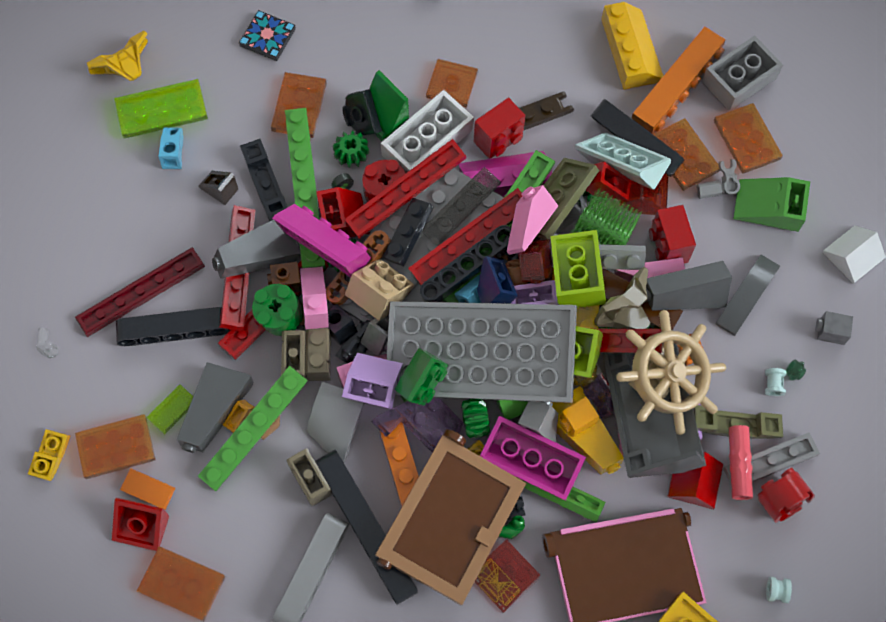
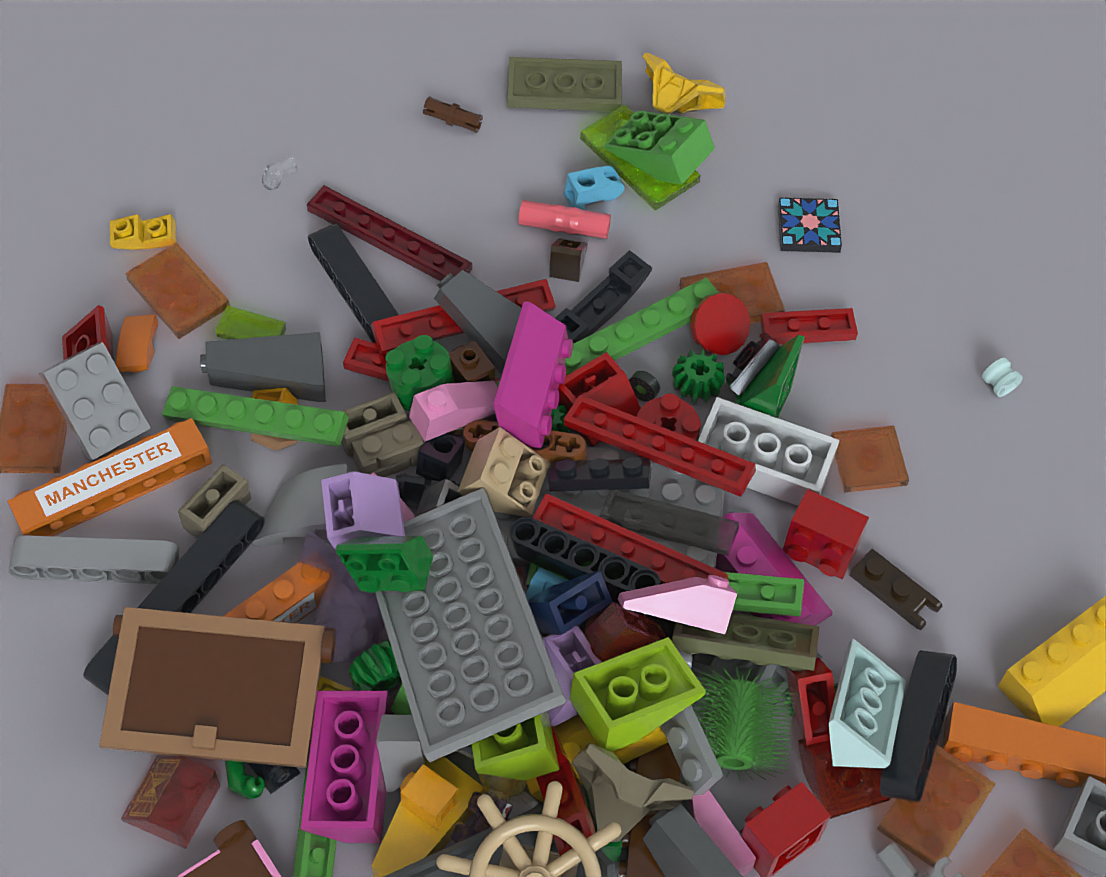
camera: 65 degrees right, 10 degrees down
(59, 209) = (452, 114): none -> reddish brown pin
(72, 128) = (564, 84): none -> olive plate
(165, 89) = (663, 145): none -> bright green slope
(188, 175) = (564, 219): none -> coral axle
(193, 528) = (94, 400): none -> light grey brick
(254, 541) = (111, 481): none -> orange brick
(321, 118) = (720, 324): none -> red tile
(344, 71) = (814, 325): none -> red plate

